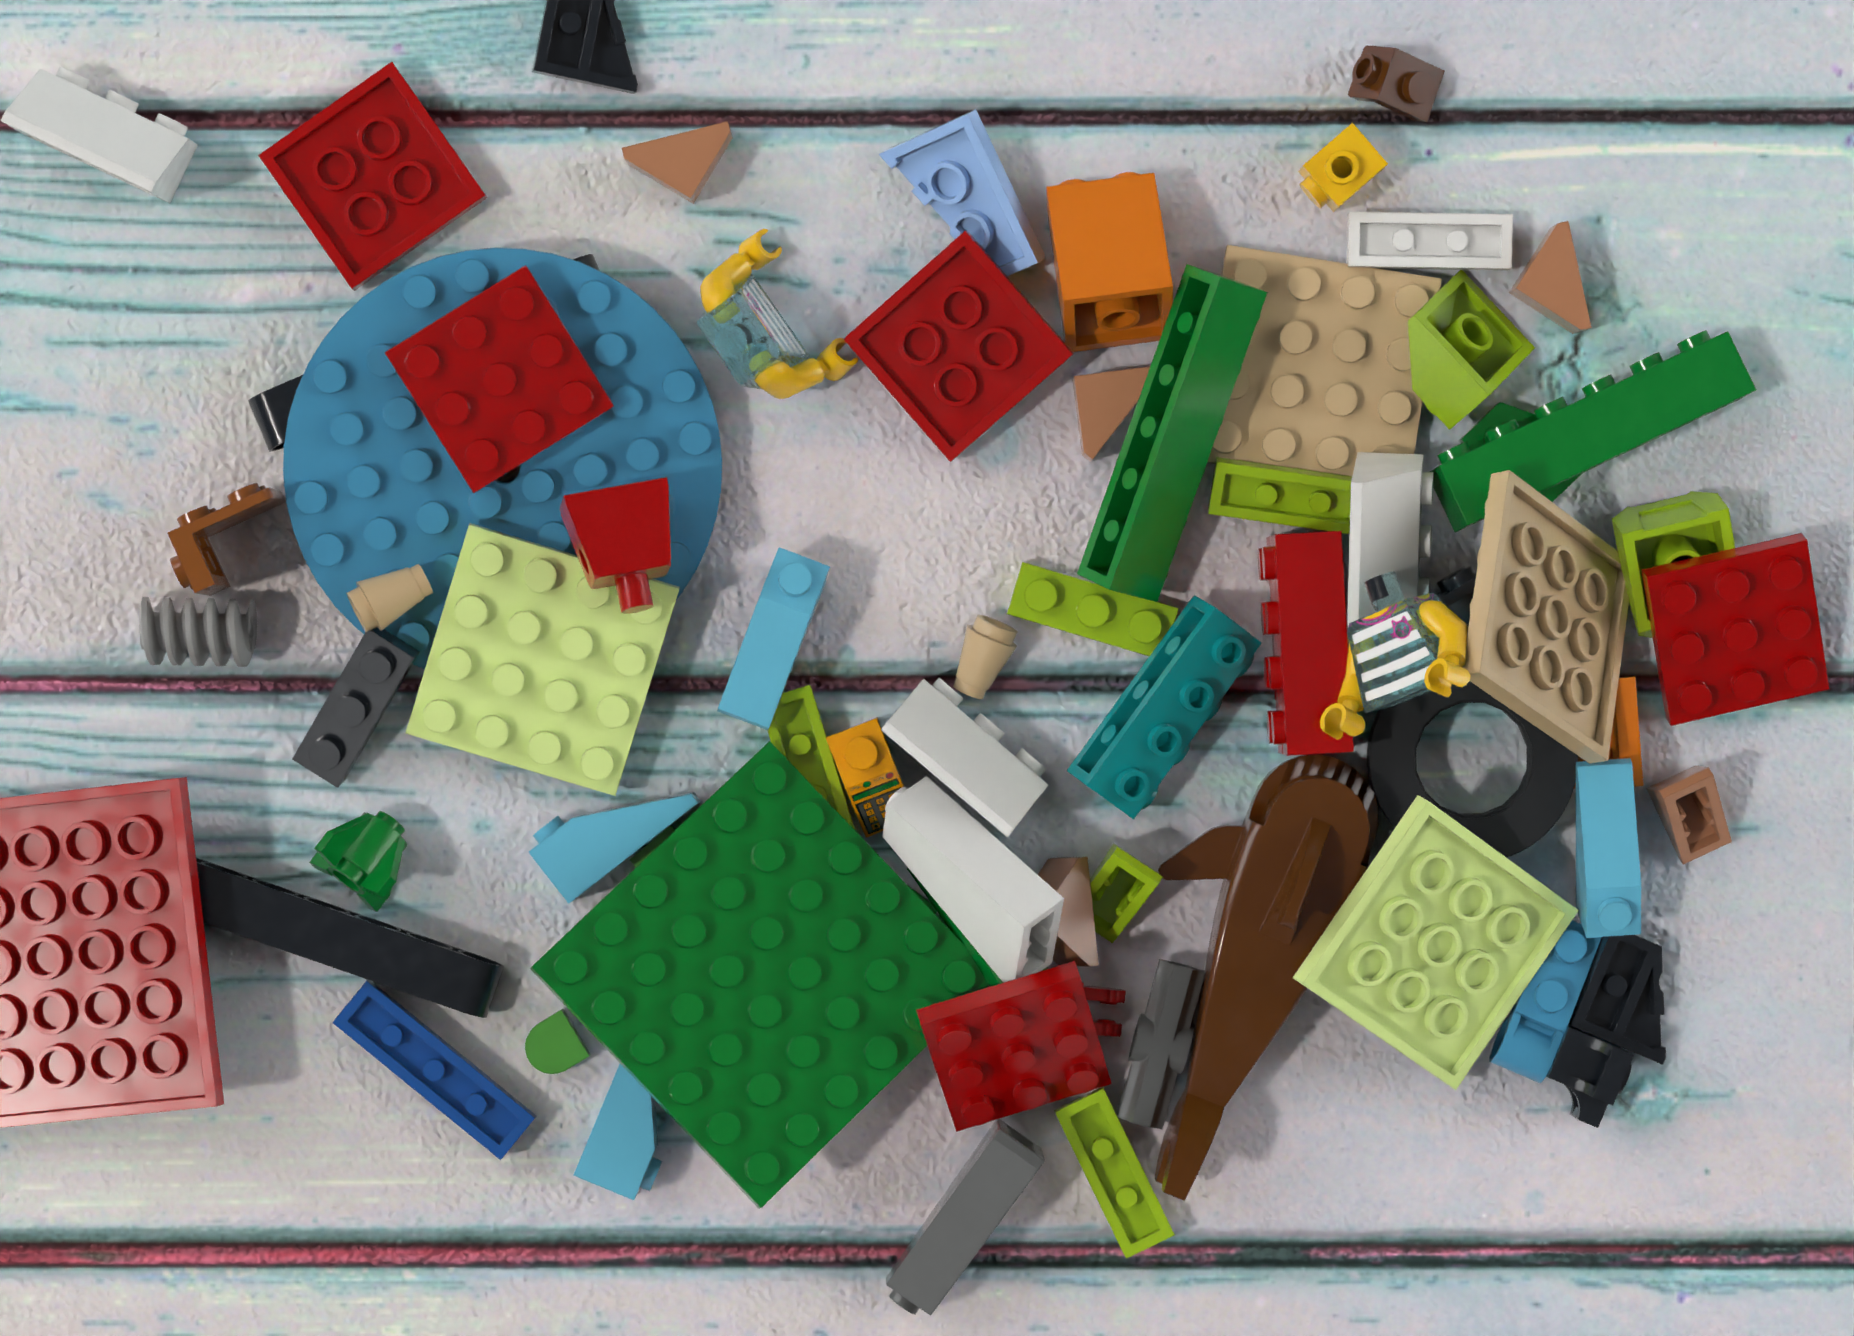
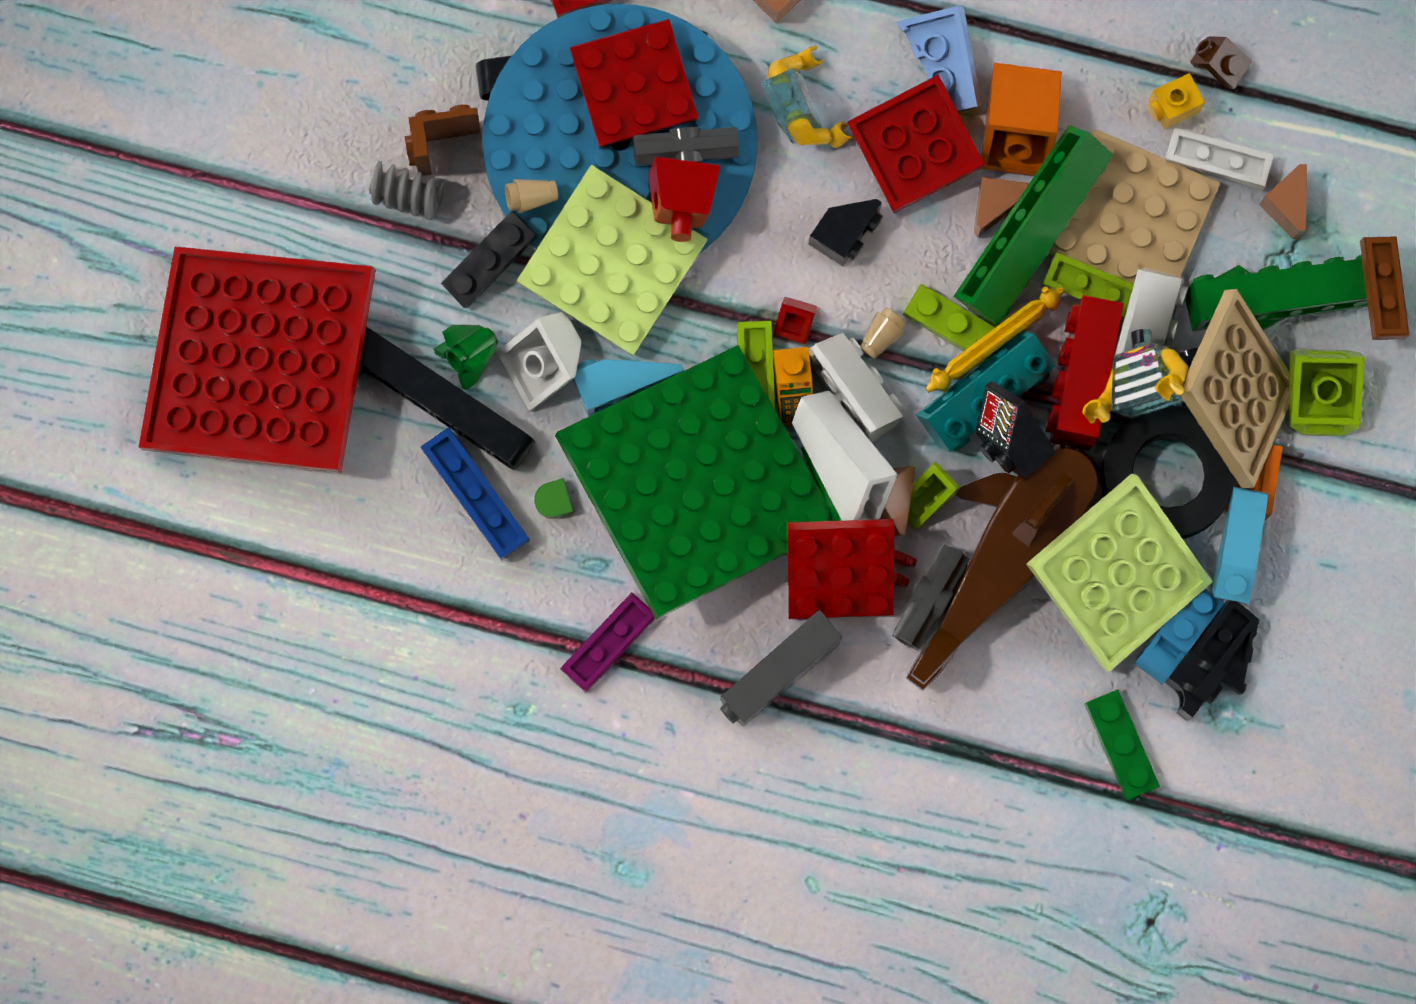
camera: 10 degrees right, 10 degrees down
(480, 836) = (542, 358): none -> white slope
(606, 457) = (687, 145): none -> dark grey piece
(622, 1140) = (581, 563): medium azure slope -> none
(693, 1243) = (608, 642): none -> magenta tile
(773, 638) = (758, 284): medium azure slope -> none
(845, 667) = (795, 320): none -> red slope
(882, 507) = (843, 227): none -> black slope
(1114, 1172) = (881, 669): lime plate -> none
(1158, 625) = (995, 339): none -> yellow wheel
(1220, 780) = (1011, 433): none -> black slope
(1461, 349) = (1222, 226): lime slope -> none
(1501, 1186) = (1122, 745): none -> green plate
(1691, 812) = (1297, 542): nougat slope -> none
(1733, 389) = (1384, 288): none -> dark orange tile
(1736, 629) = (1351, 436): red plate -> none

